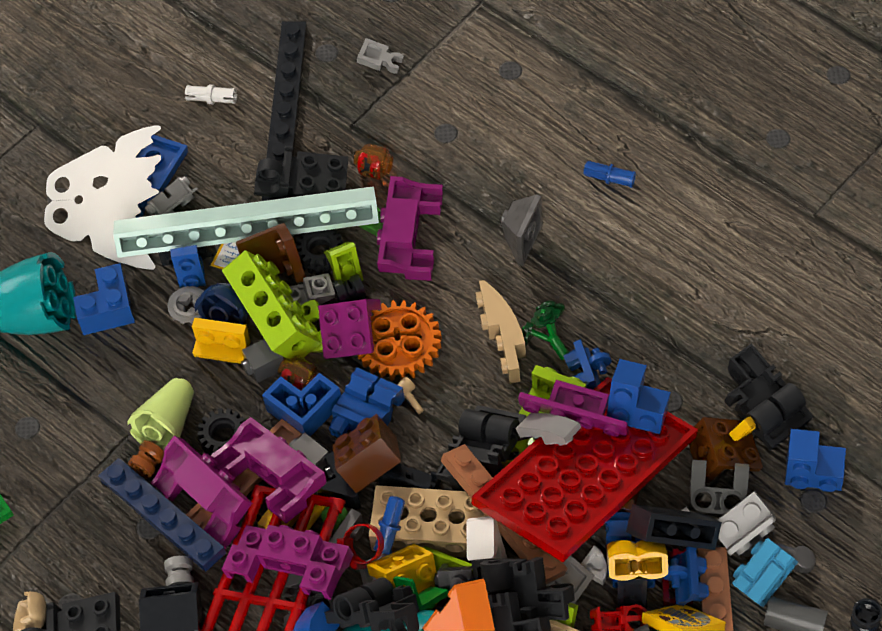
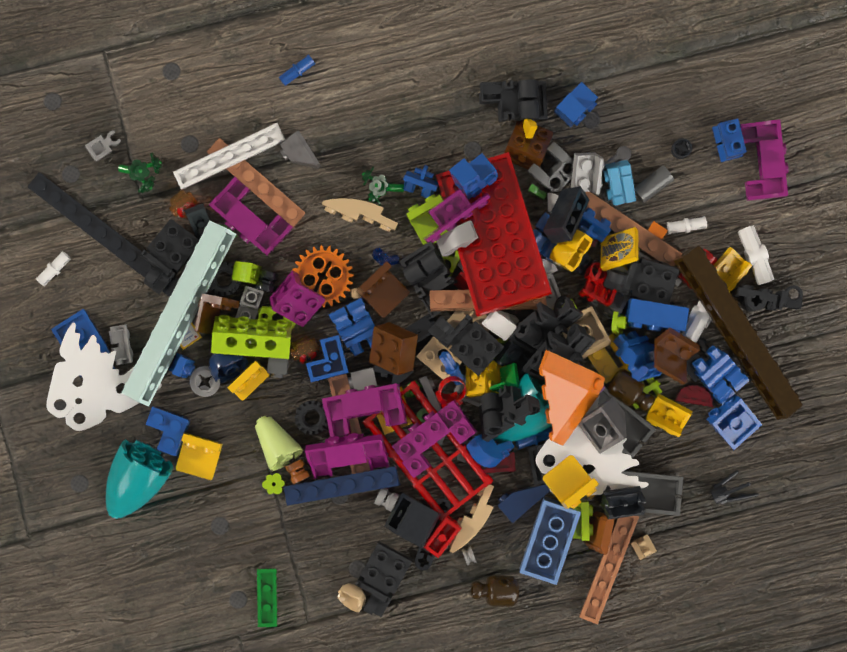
camera: 65 degrees left, 30 degrees up
(96, 351) = (198, 456): none -> yellow bracket
(115, 447) = (267, 484): none -> lime plant
(370, 175) = (198, 218): none -> black slope
(376, 94) = (139, 170): none -> dark green plant
(429, 405) = (383, 290): none -> reddish brown bracket
(433, 518) = (469, 342): none -> black plate
(453, 217) = (263, 188): none -> nougat plate
(460, 166) = (229, 156): none -> white tile
(467, 389) = (381, 257): none -> clear blue arm
(676, 487) = (534, 190): none -> bright green tile

